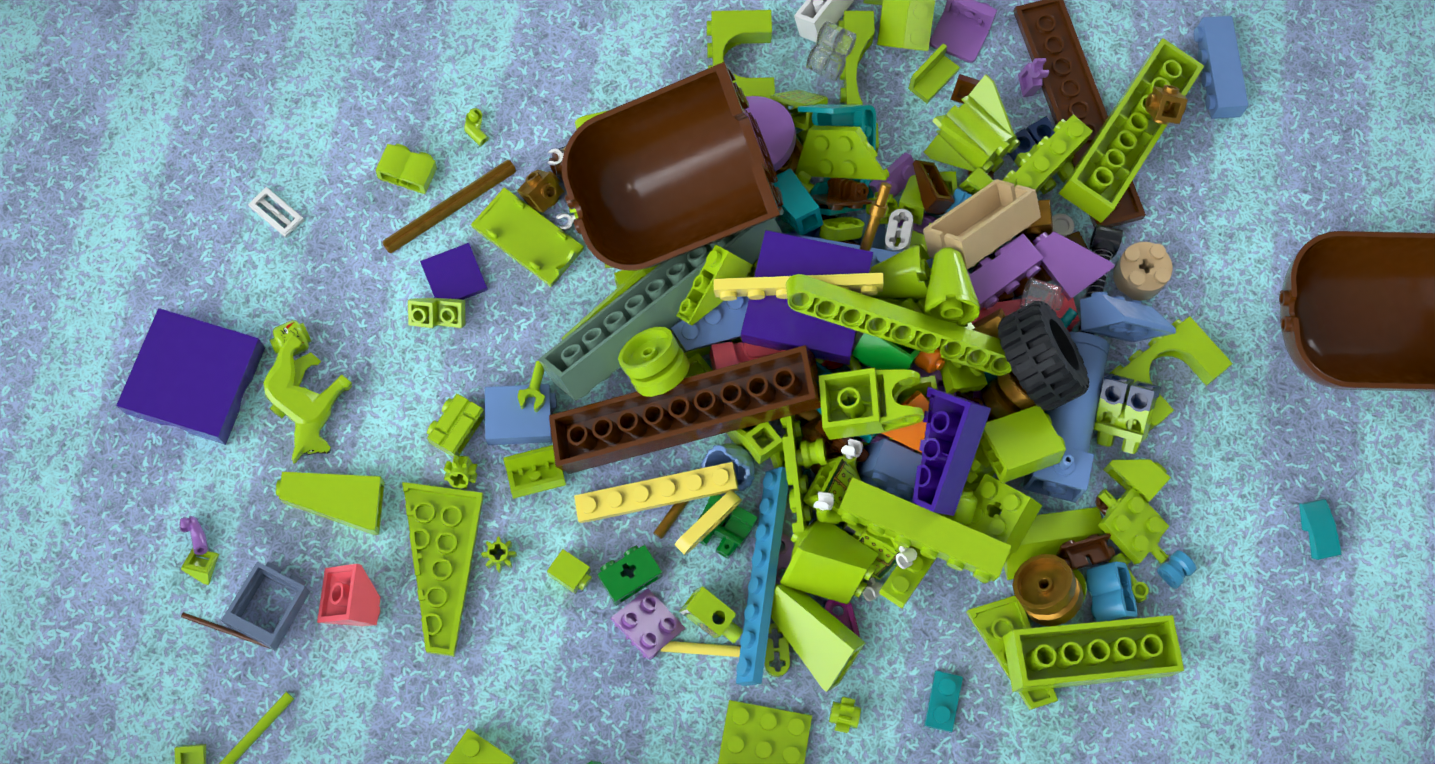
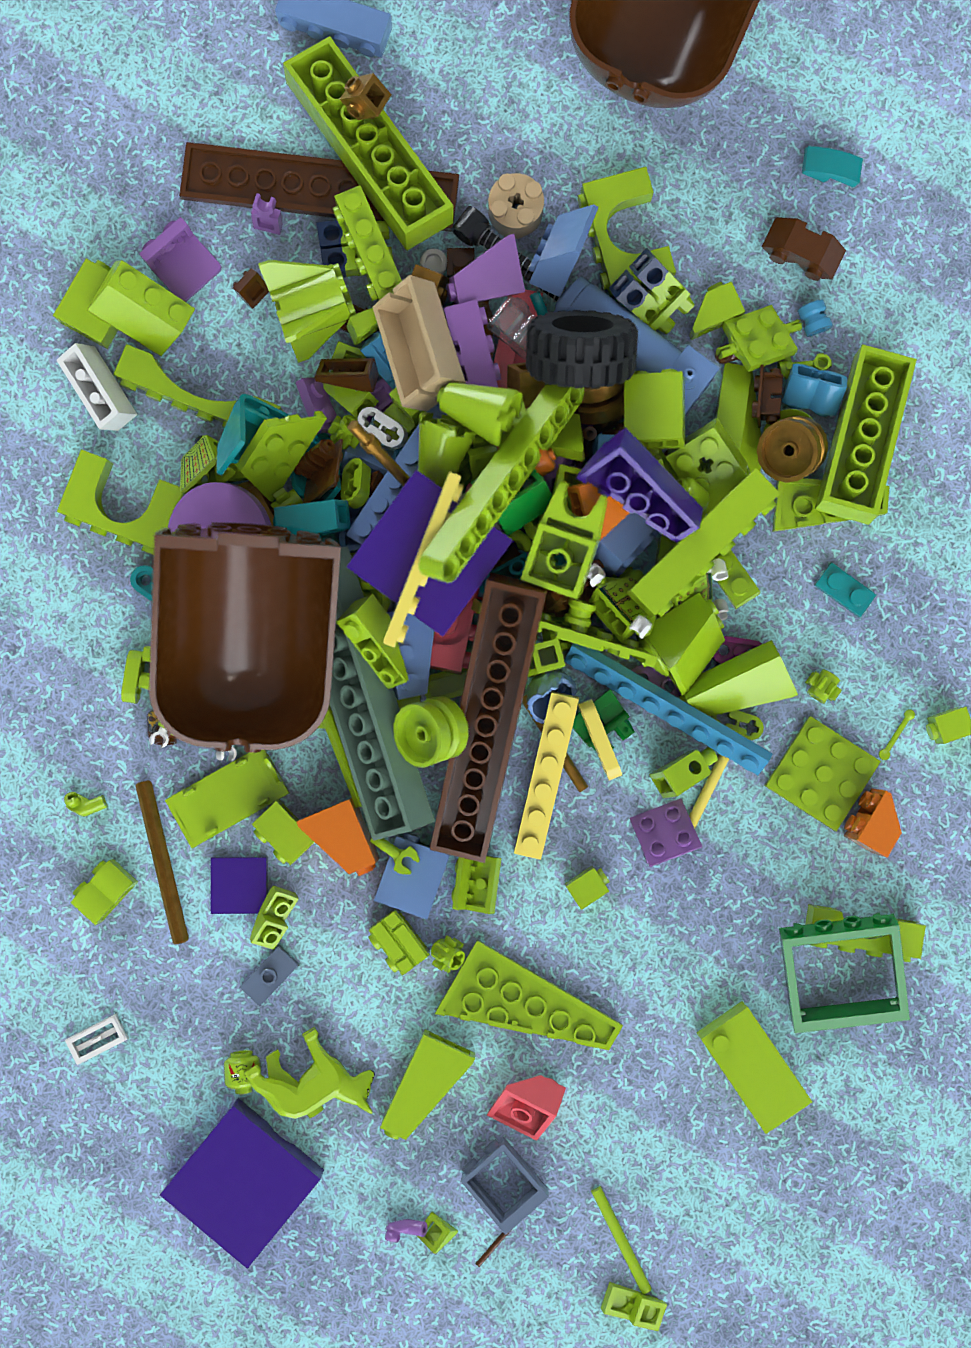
camera: 65 degrees left, 15 degrees up
(383, 330) = (269, 975): none -> sand blue plate
(504, 559) = (546, 954): lime gear -> none
(515, 291) = (281, 830): none -> lime brick
(531, 335) = (343, 836): none -> orange slope
(541, 190) = (185, 765): pearl gold brick -> none
(621, 587) = (623, 844): green brick -> none
(831, 50) = (153, 407): clear brick -> none
(933, 75) = (221, 314): lime panel -> none
(1233, 542) = (793, 243): none -> reddish brown brick

